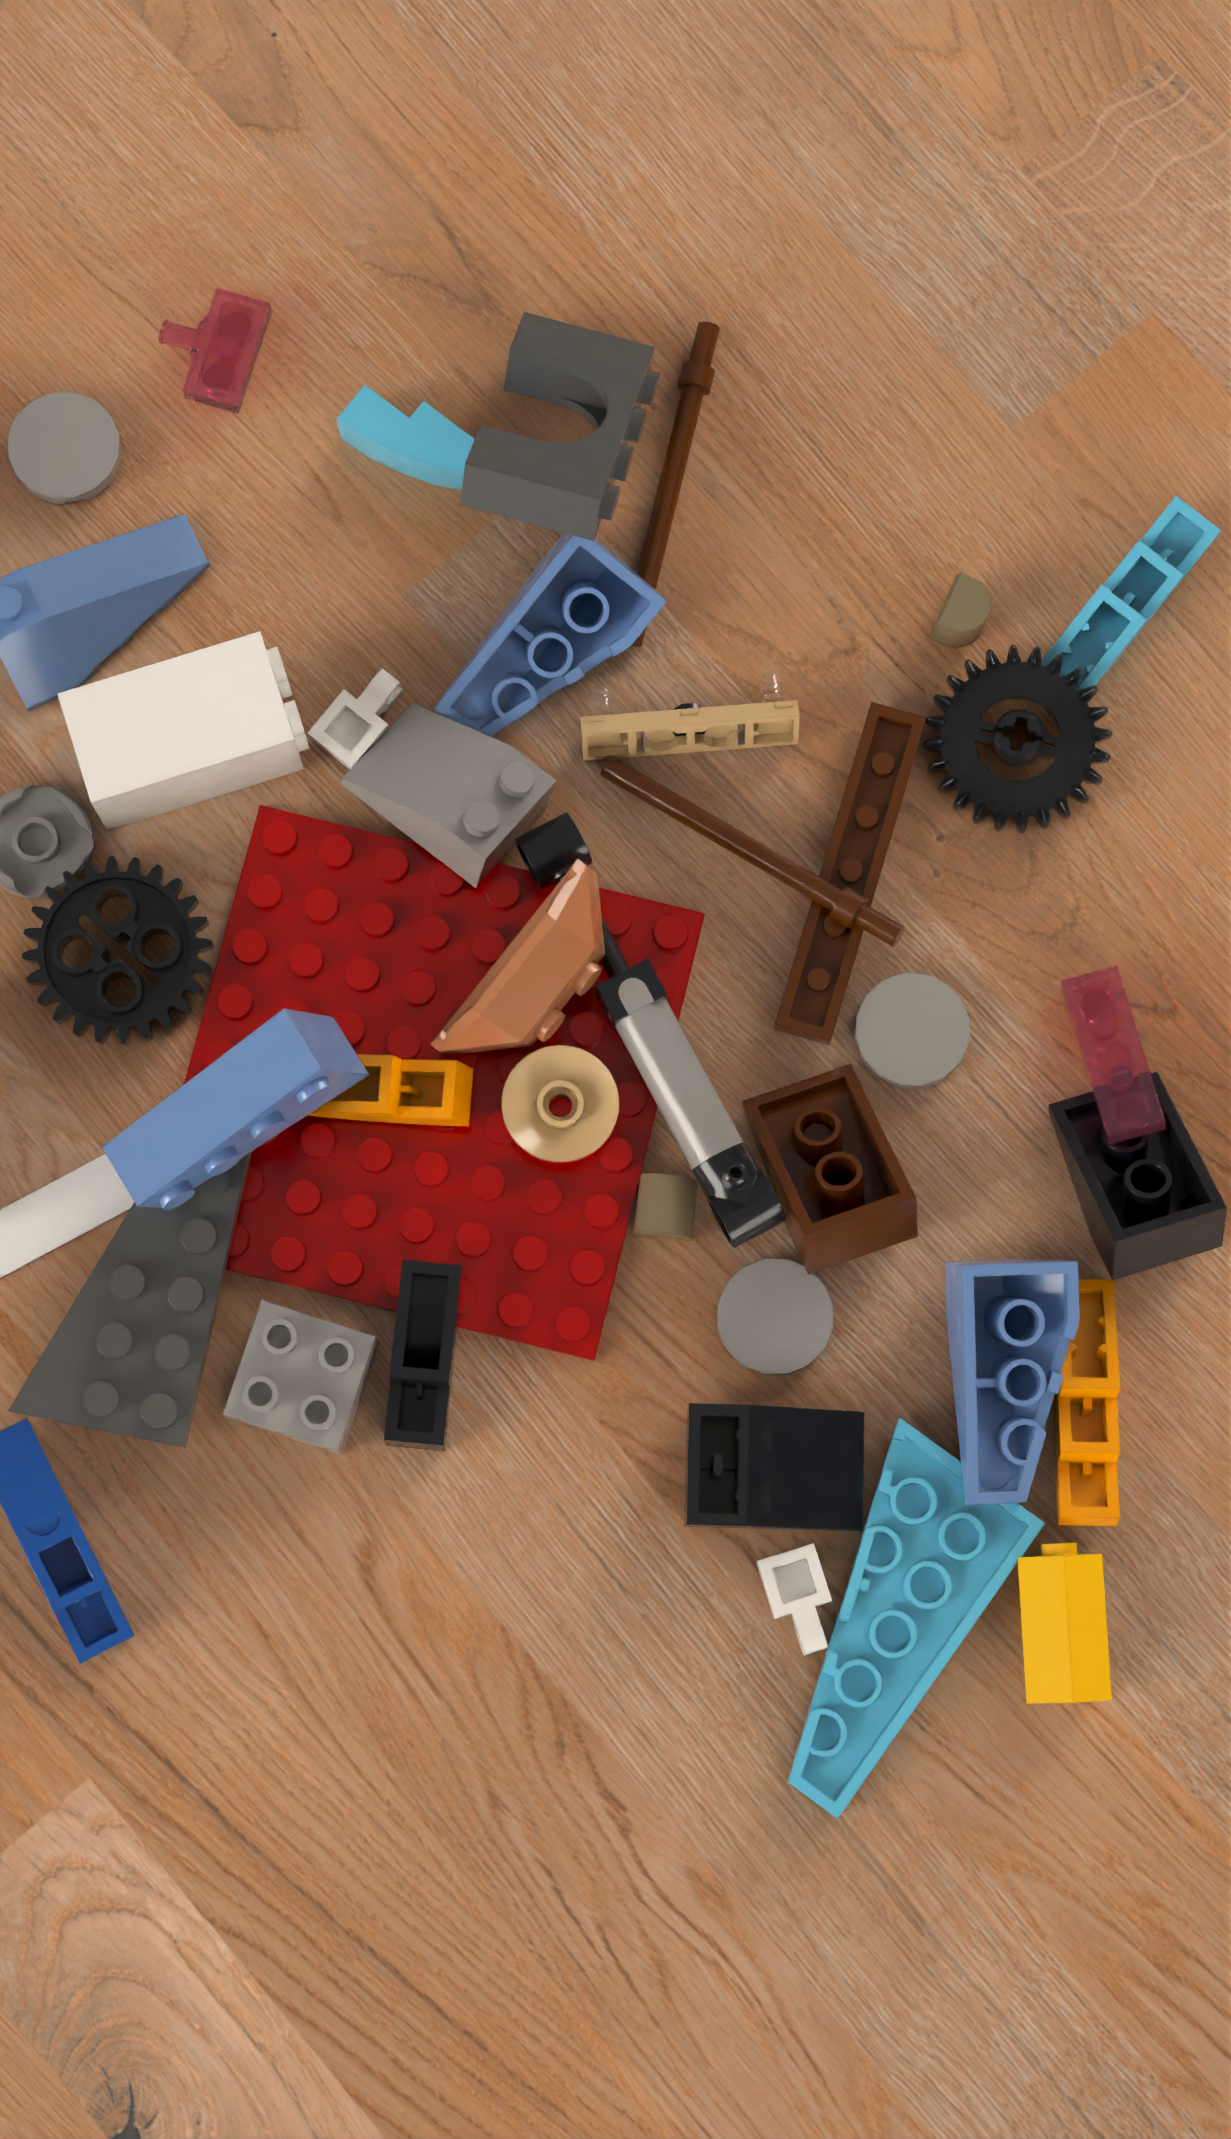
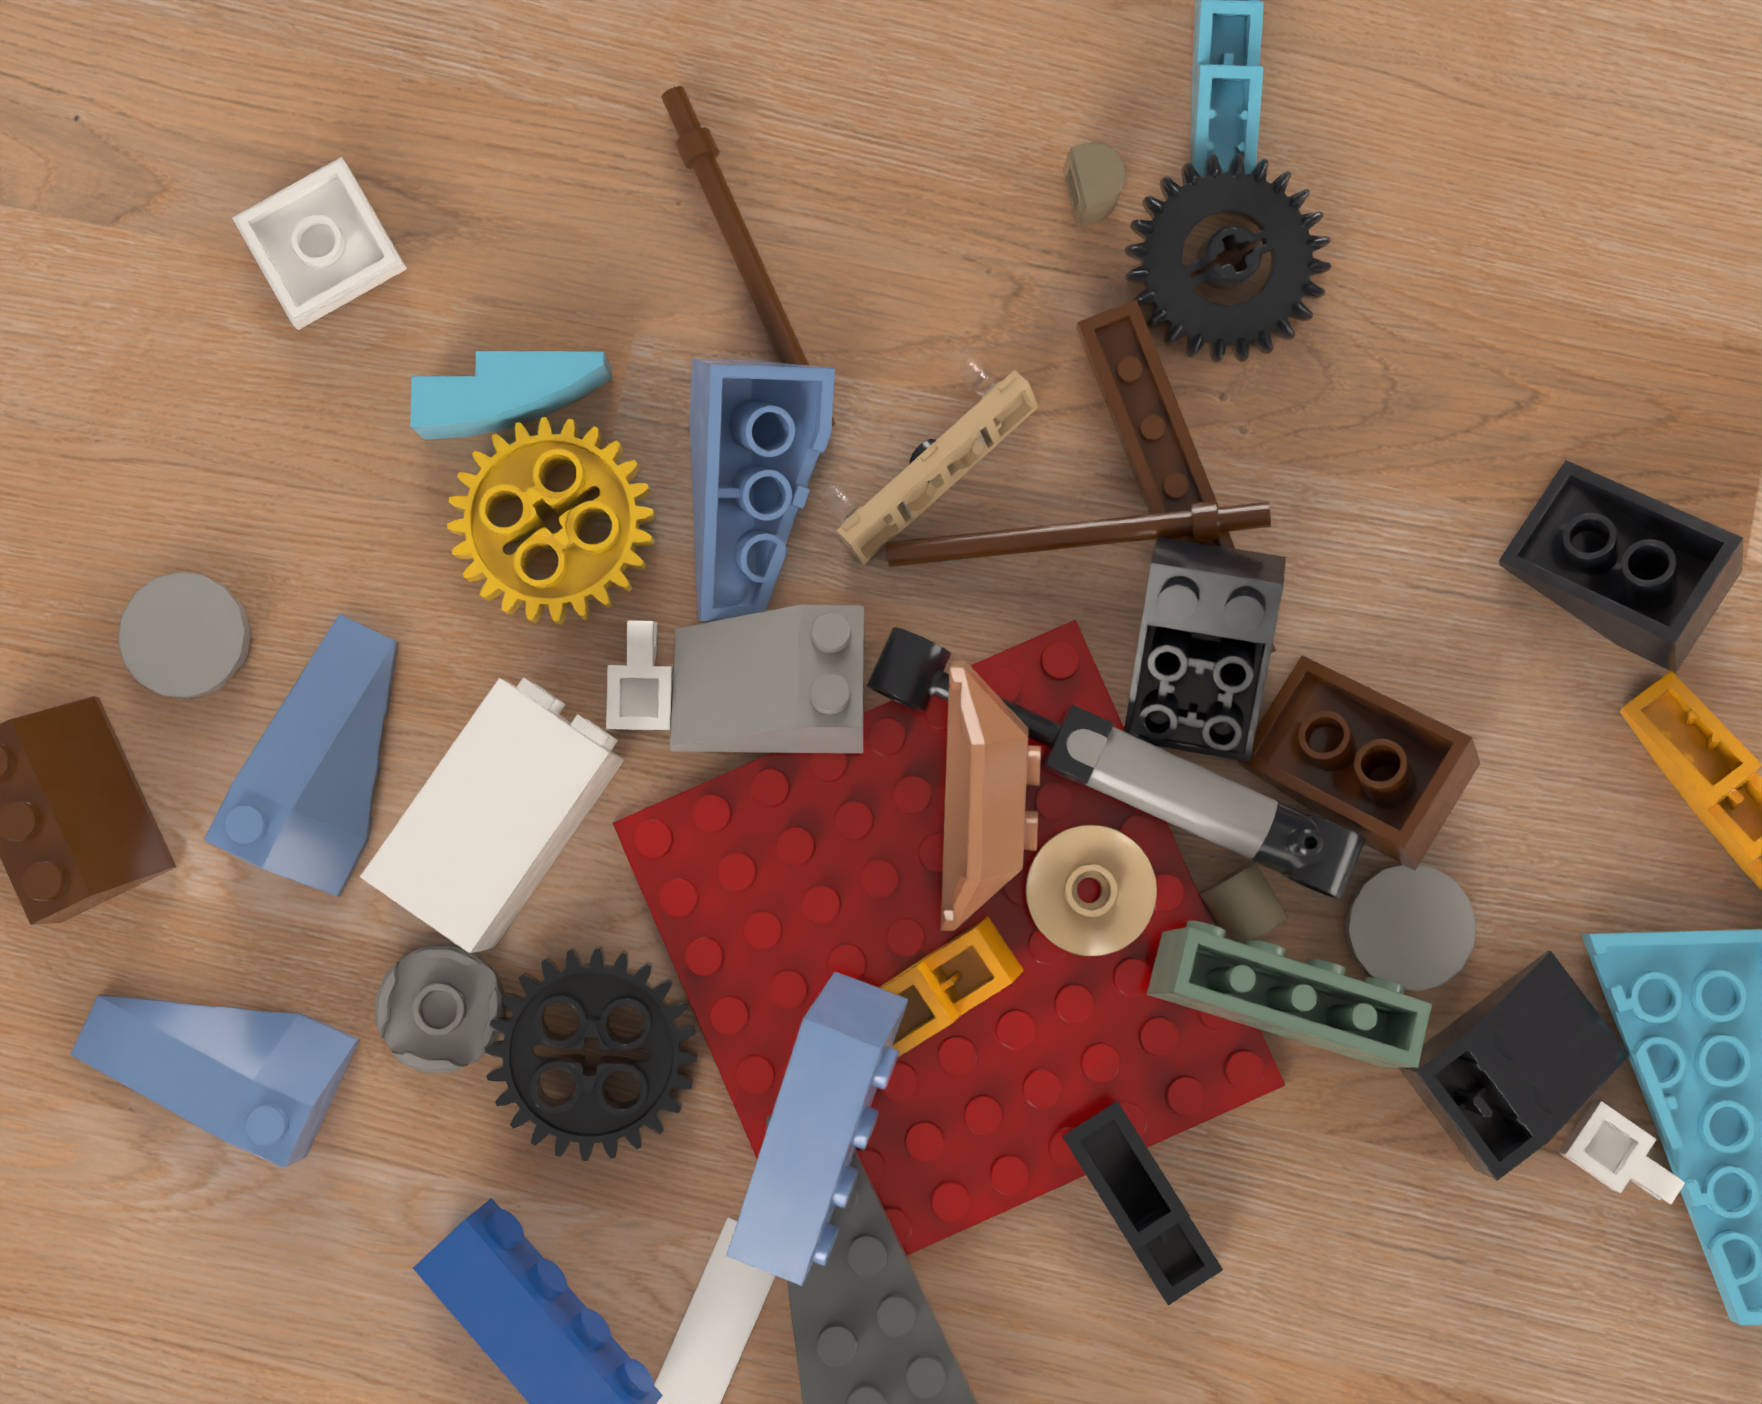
camera: 35 degrees left, 5 degrees up
(221, 348) = (255, 439): clear pink plate -> none
(301, 1377) = (1052, 1306): light grey brick -> none
(374, 246) = (319, 243): none -> white plate
(379, 609) = (521, 473): none -> yellow gear
(572, 481) = (667, 330): dark grey arch -> none
(642, 1286) = (1288, 997): none -> sand green brick
(777, 995) = (1204, 647): none -> black slope
(912, 1030) = (1336, 585): light grey tile -> none
(1006, 1356) = (1635, 803): medium blue wedge -> none
(1113, 1055) = (1528, 475): clear pink plate -> none

